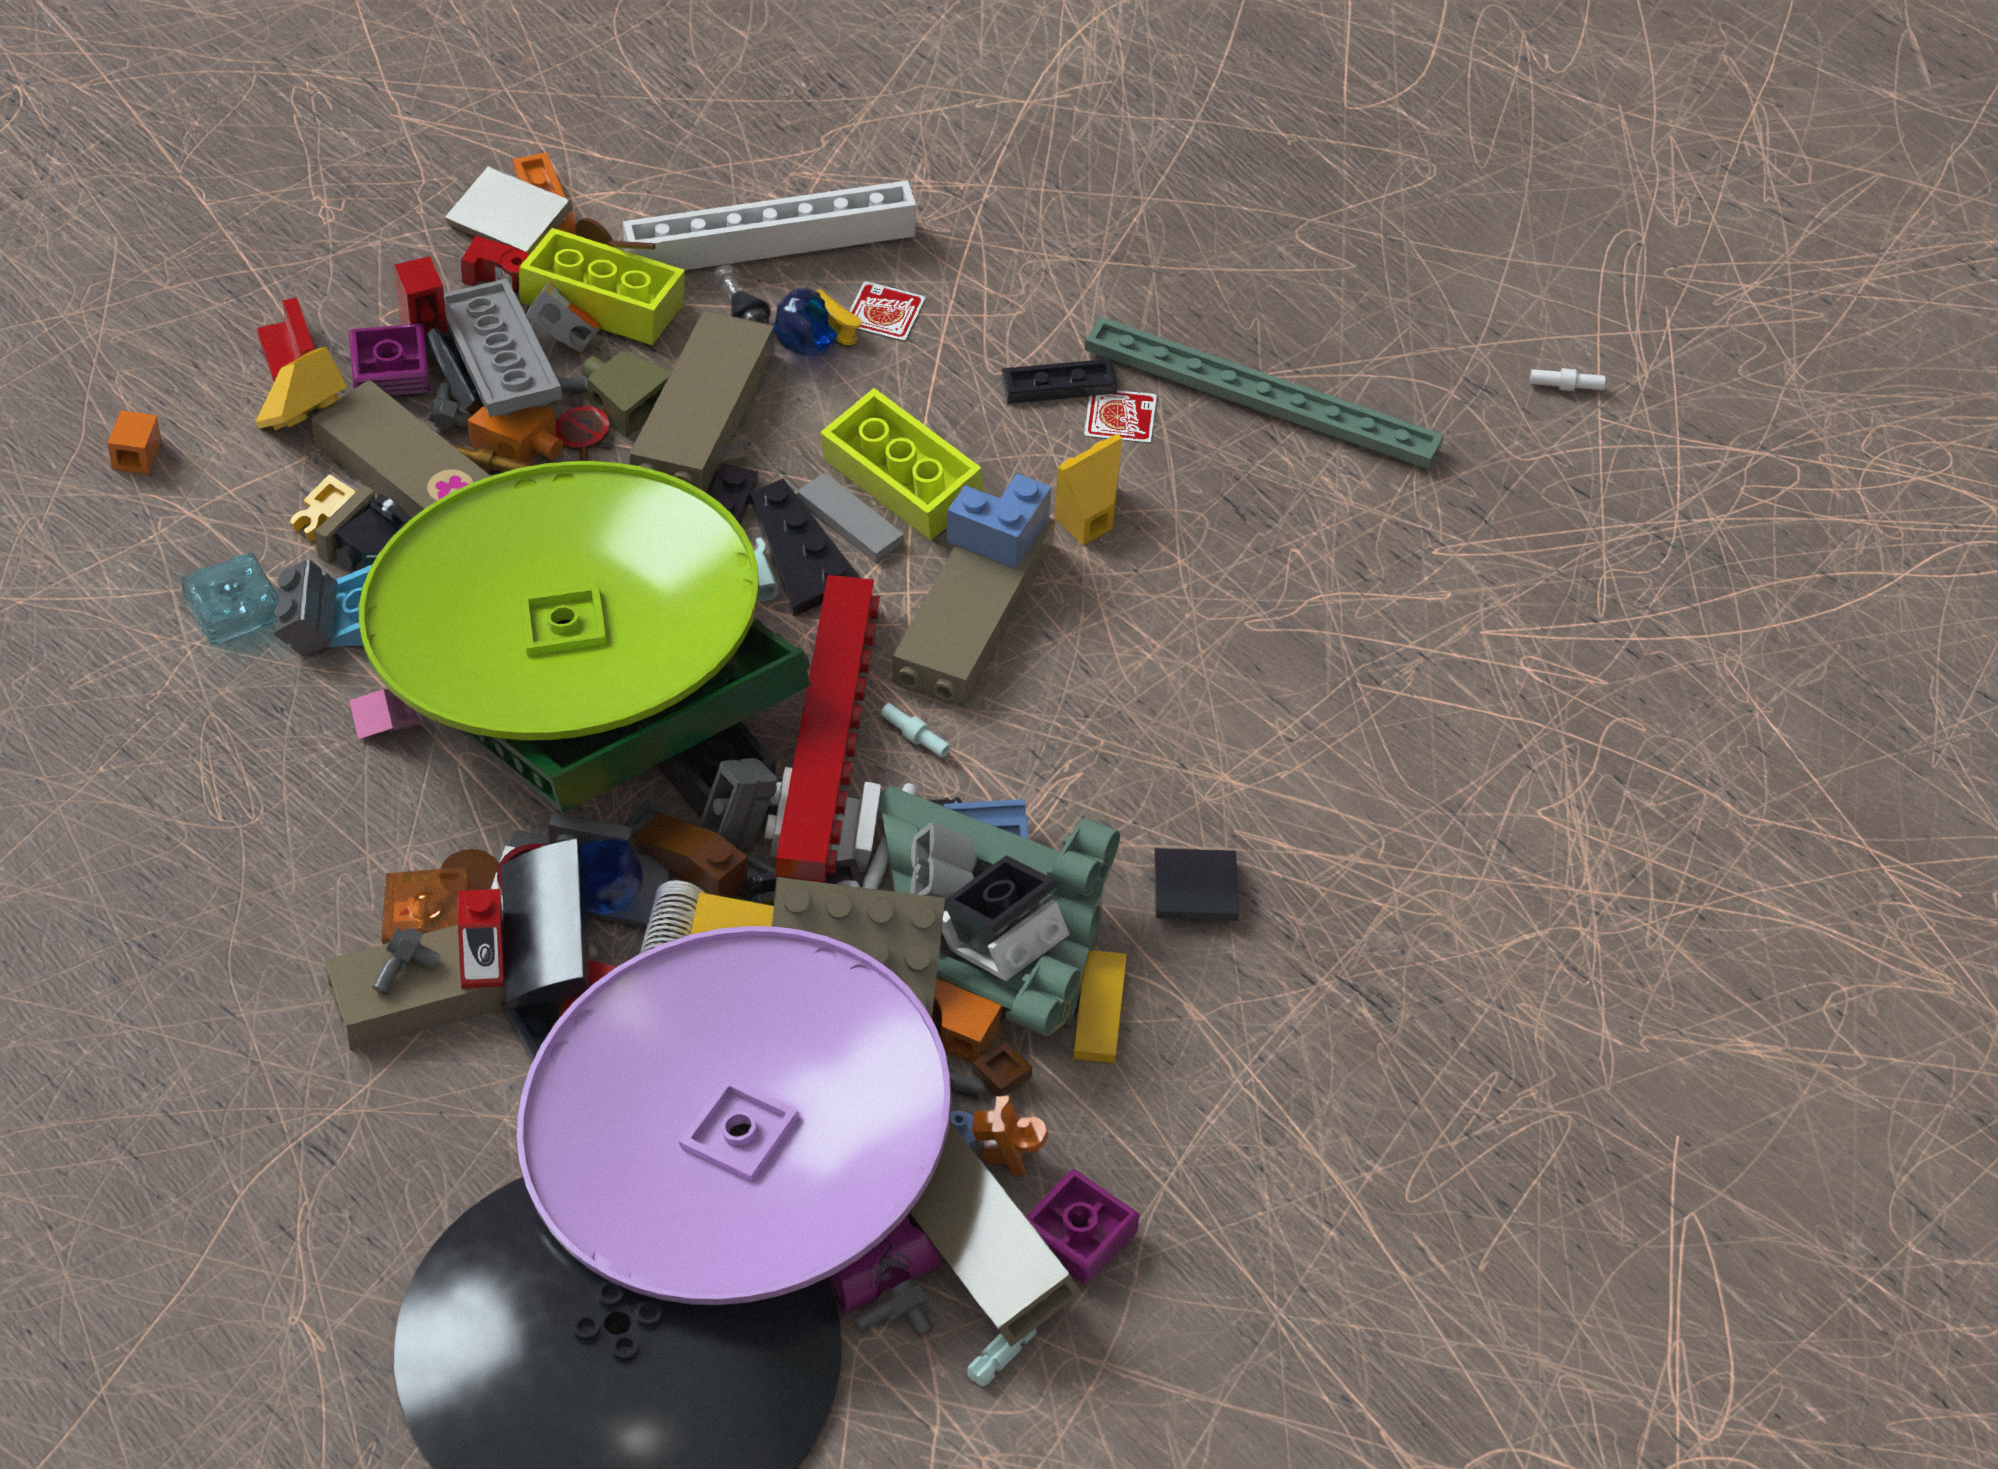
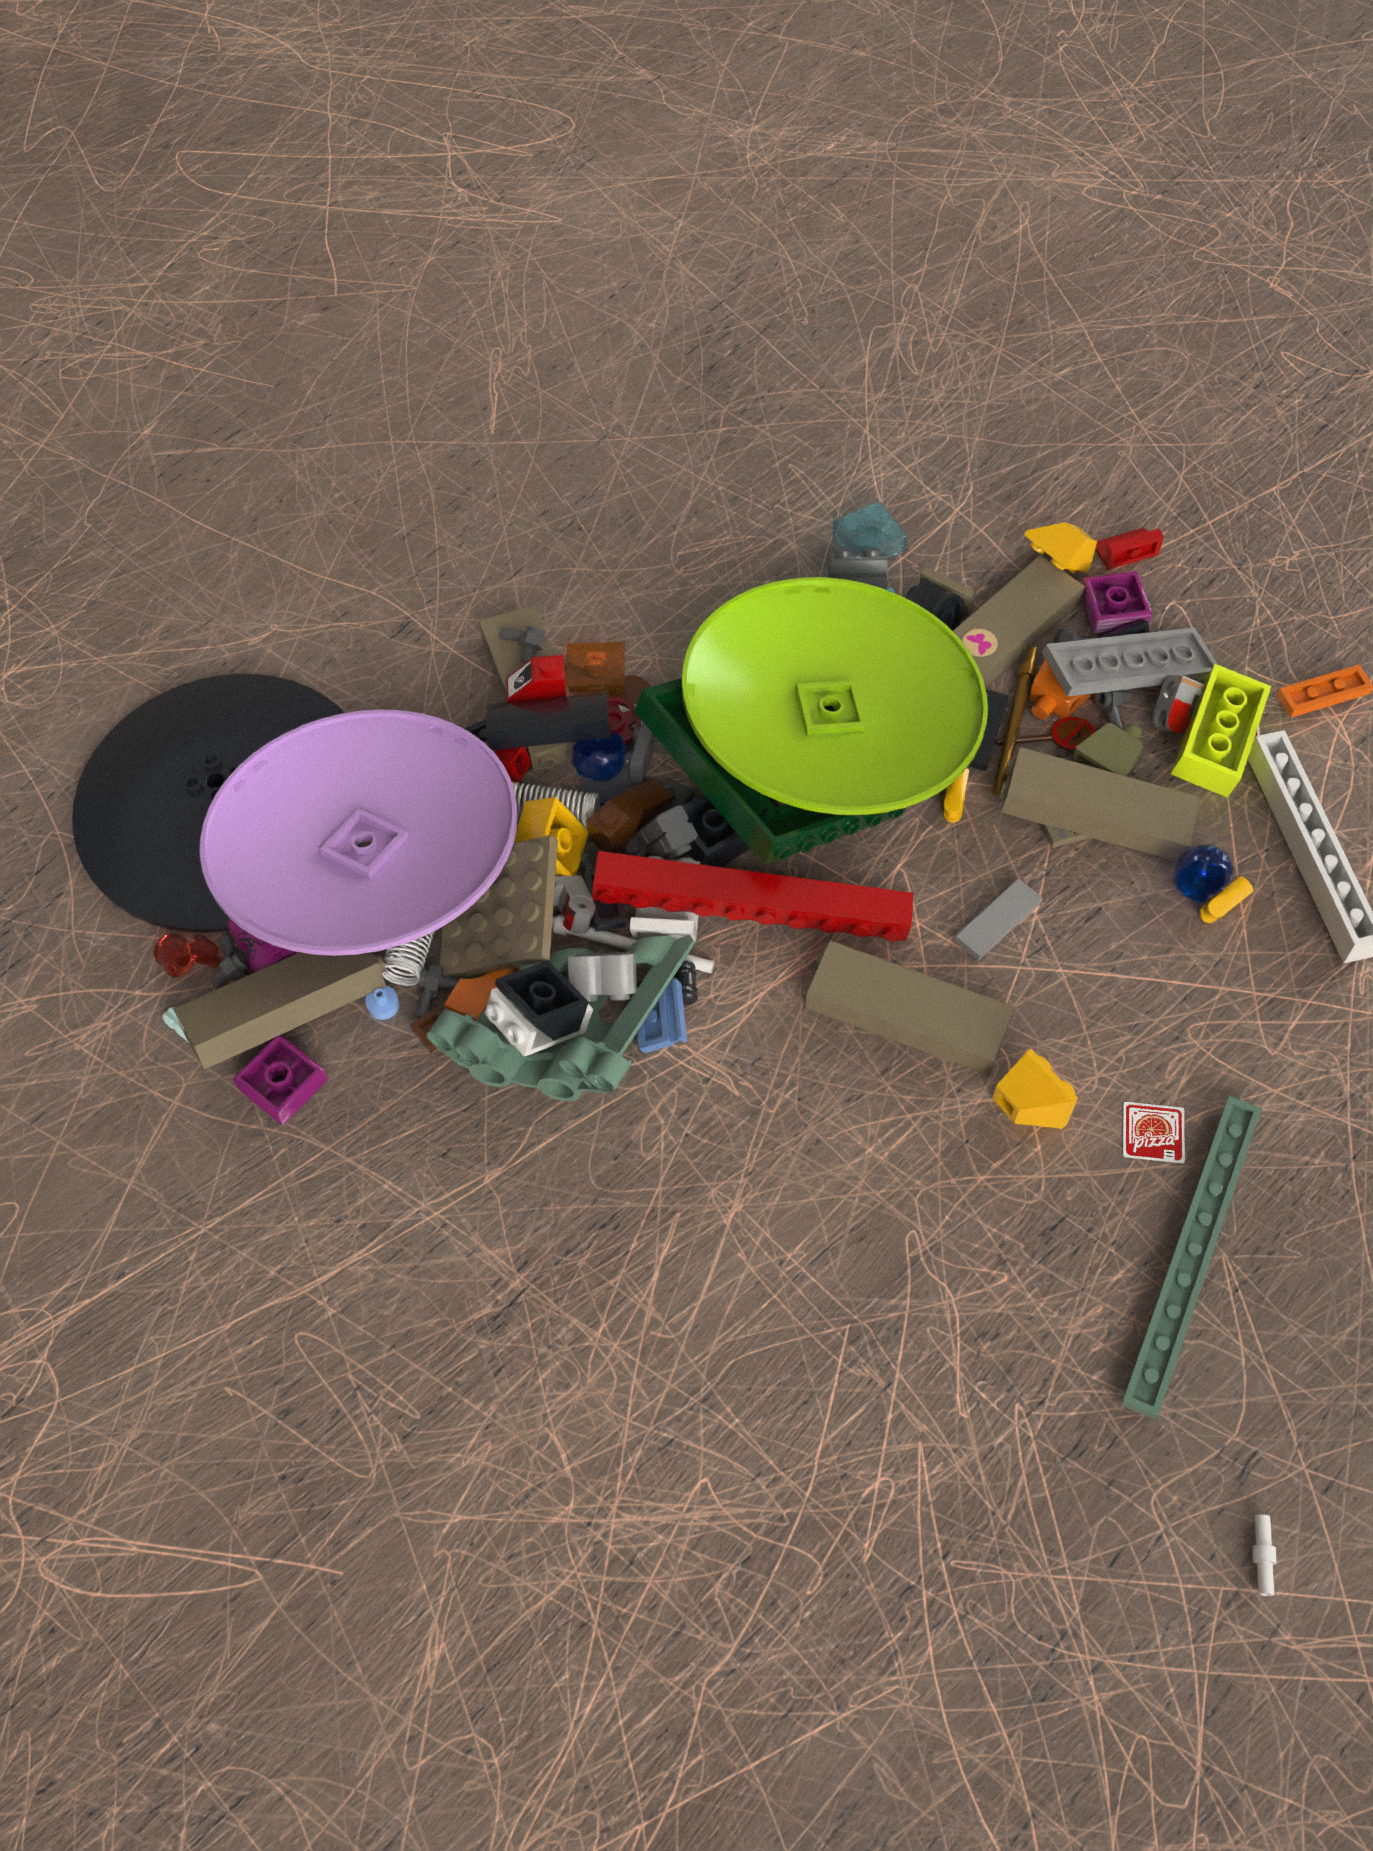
camera: 95 degrees right, 10 degrees up
(134, 442) = (1012, 467): orange brick -> none
(321, 505) = (967, 576): yellow plate -> none
(420, 294) = (1175, 605): red brick -> none
(491, 262) = (1239, 654): red leg -> none
(508, 210) = (1295, 664): tile -> none
(596, 232) = (1268, 727): reddish brown piece -> none
(733, 489) = (1008, 834): black plate -> none
(742, 304) = (1224, 834): piece -> none
(767, 583) = (931, 854): light aqua bar -> none
(797, 546) = (961, 884): black wing -> none
(886, 310) = (1249, 943): sticker -> none
(886, 1365) = (180, 955): none -> clear red piece
(899, 461) = (1051, 949): neon yellow brick -> none
(915, 730) = (770, 968): light aqua bar -> none
(1000, 526) = (968, 1016): medium blue brick -> none
(1008, 1135) = (357, 1024): orange hips -> none
(1059, 381) = (1184, 1080): black tile -> none
(1100, 1007) = (495, 1102): yellow tile -> none
(1196, 884) = (612, 1175): black slope -> none

